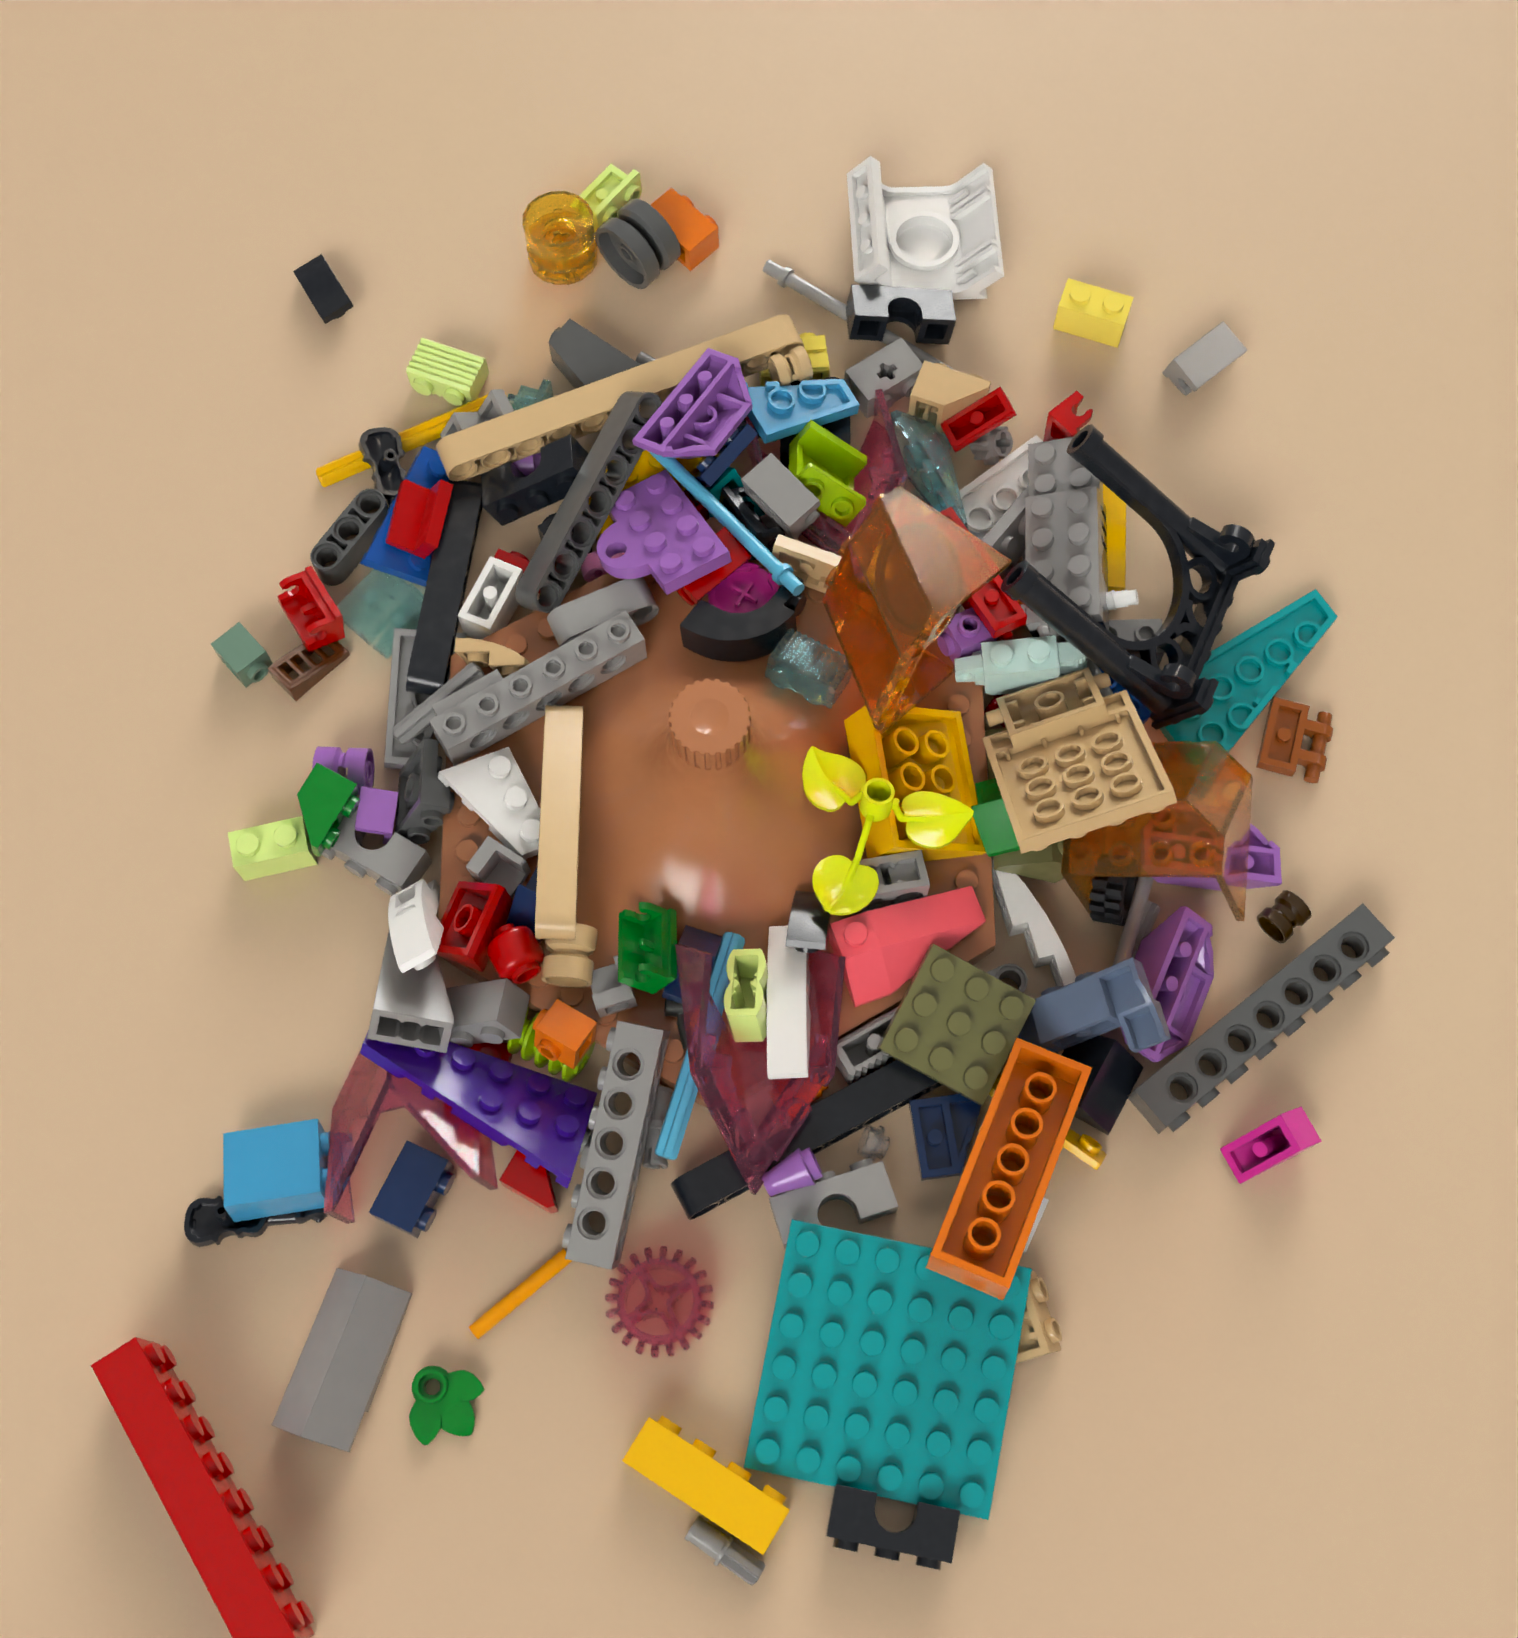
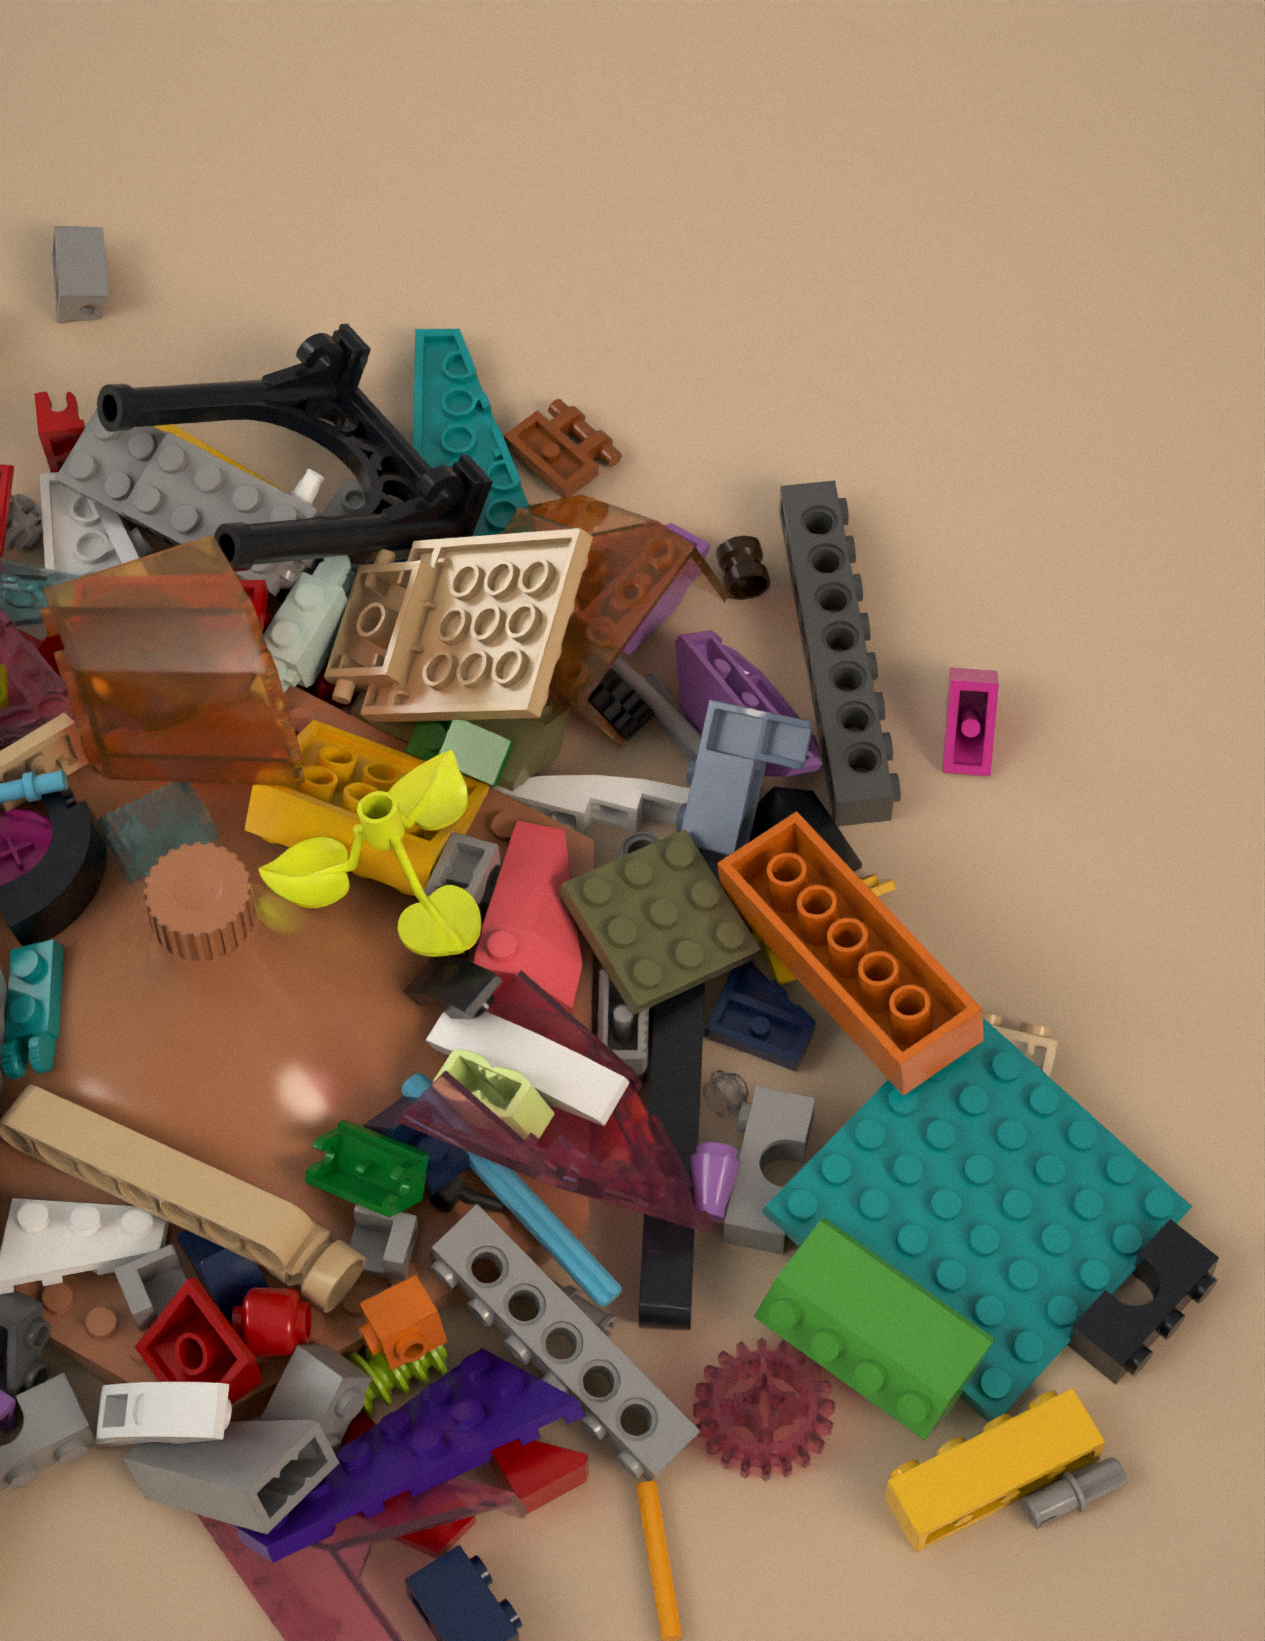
camera: 60 degrees left, 10 degrees down
(640, 676) = (33, 1008): none -> teal hinge
(749, 1346) = (874, 1328): none -> bright green slope

